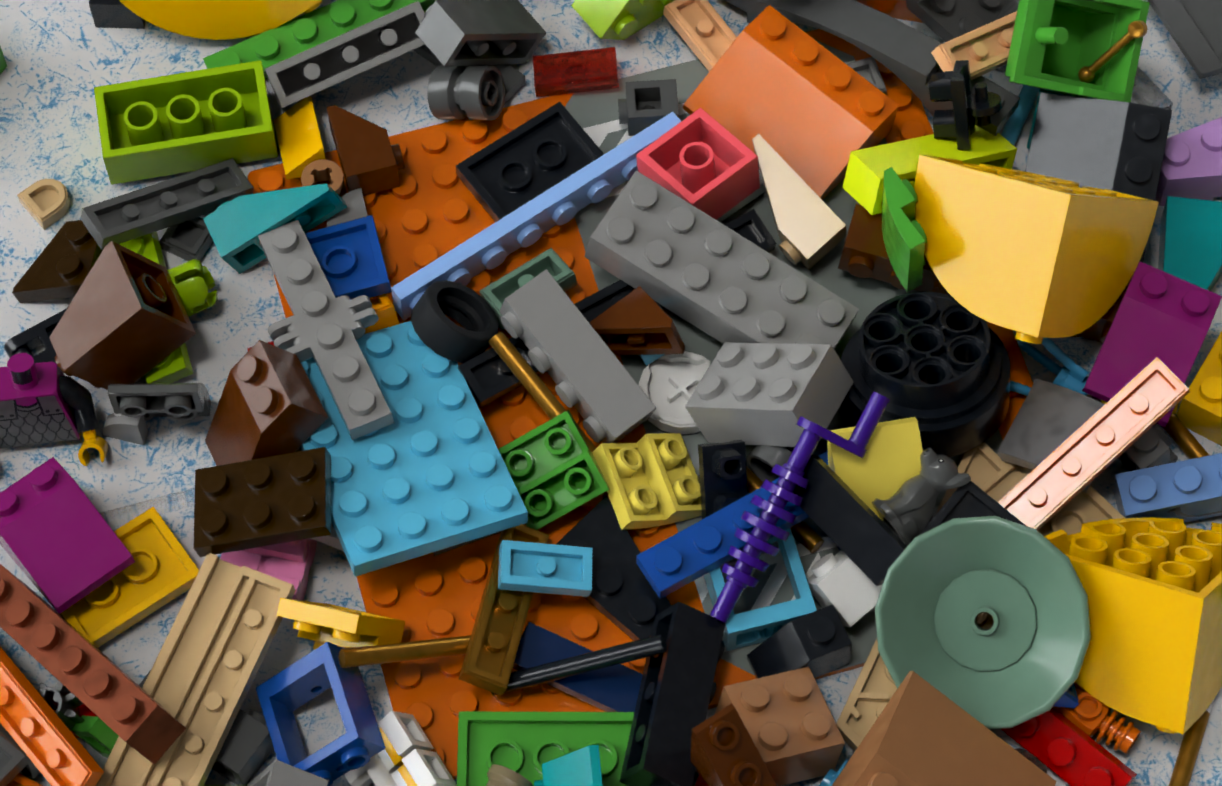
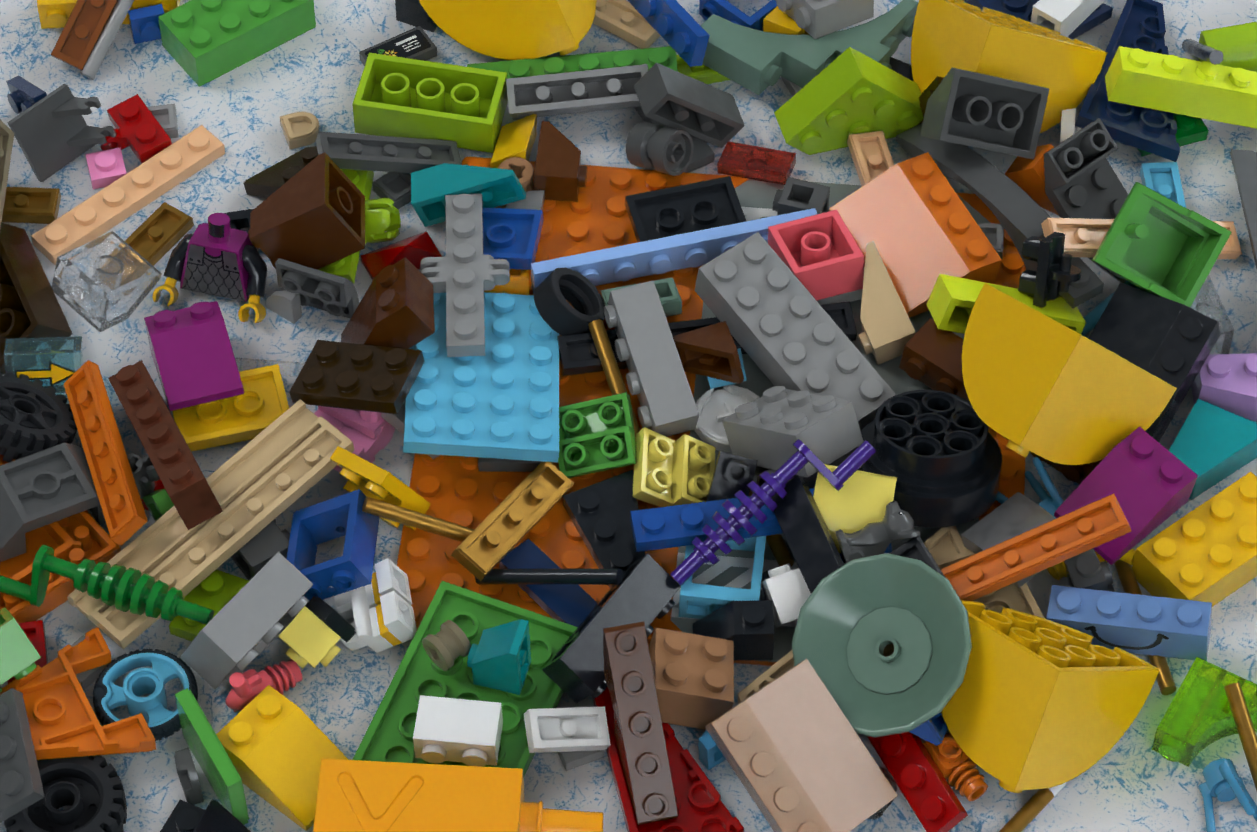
camera: 20 degrees right, 10 degrees down
(122, 62) = (410, 44): none -> tile
(231, 321) = (413, 248): none -> red slope
(545, 568) = (555, 499): medium azure plate -> none
(901, 232) = (953, 324): bright green slope -> none
(1135, 30) = (1211, 249): pearl gold hinge -> none

